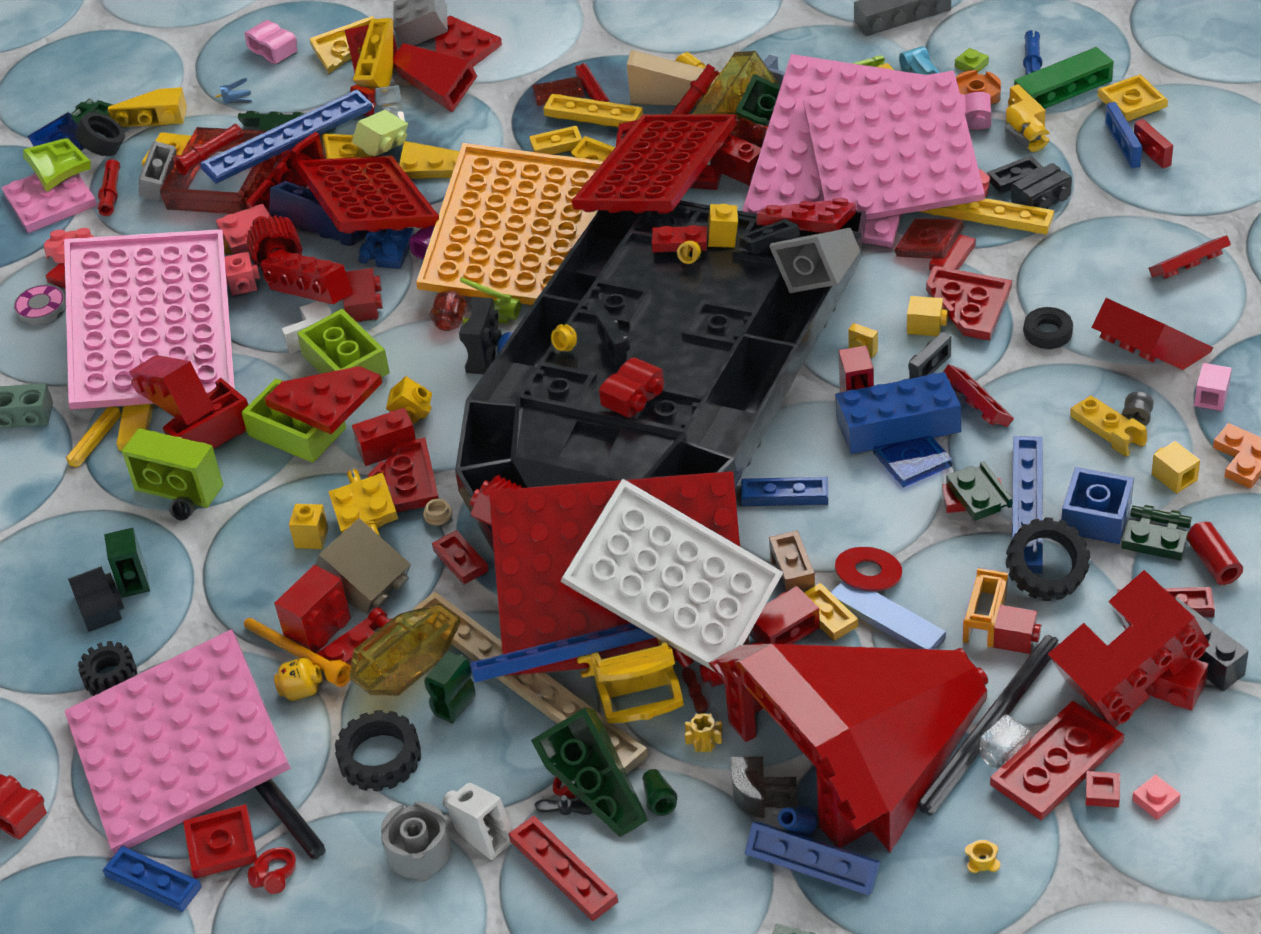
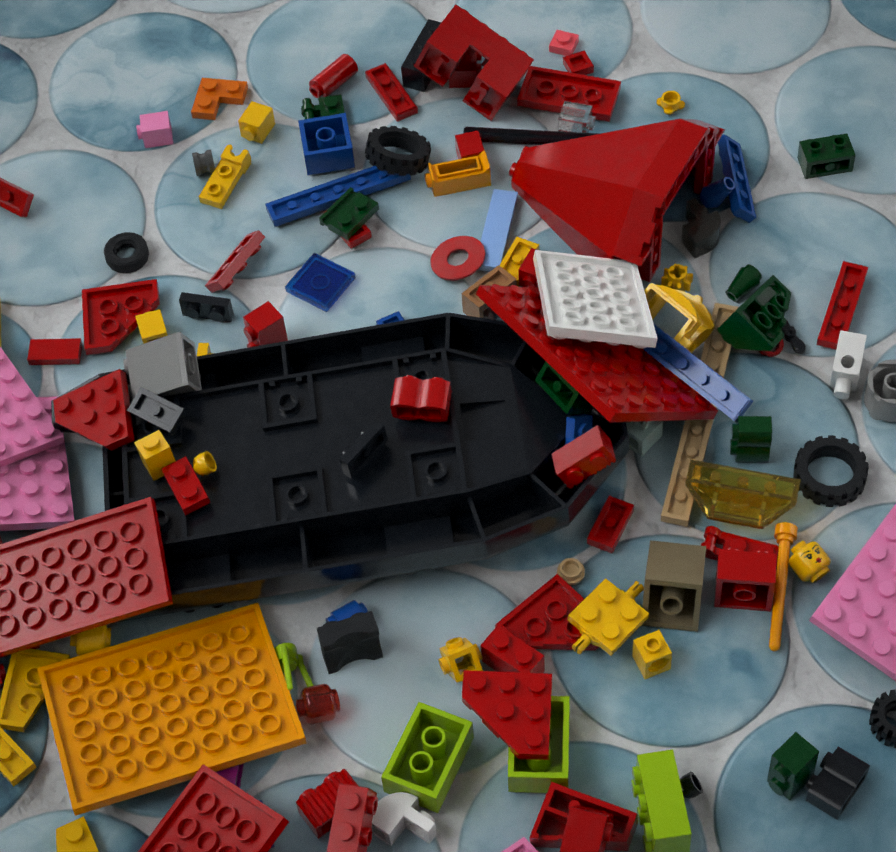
camera: 120 degrees left, 10 degrees up
(564, 338) = (379, 488): yellow plate -> none
(898, 412) = (297, 299): blue brick -> none
(929, 238) = (46, 368): clear red tile -> none
(1148, 335) = (117, 180): red wedge -> none

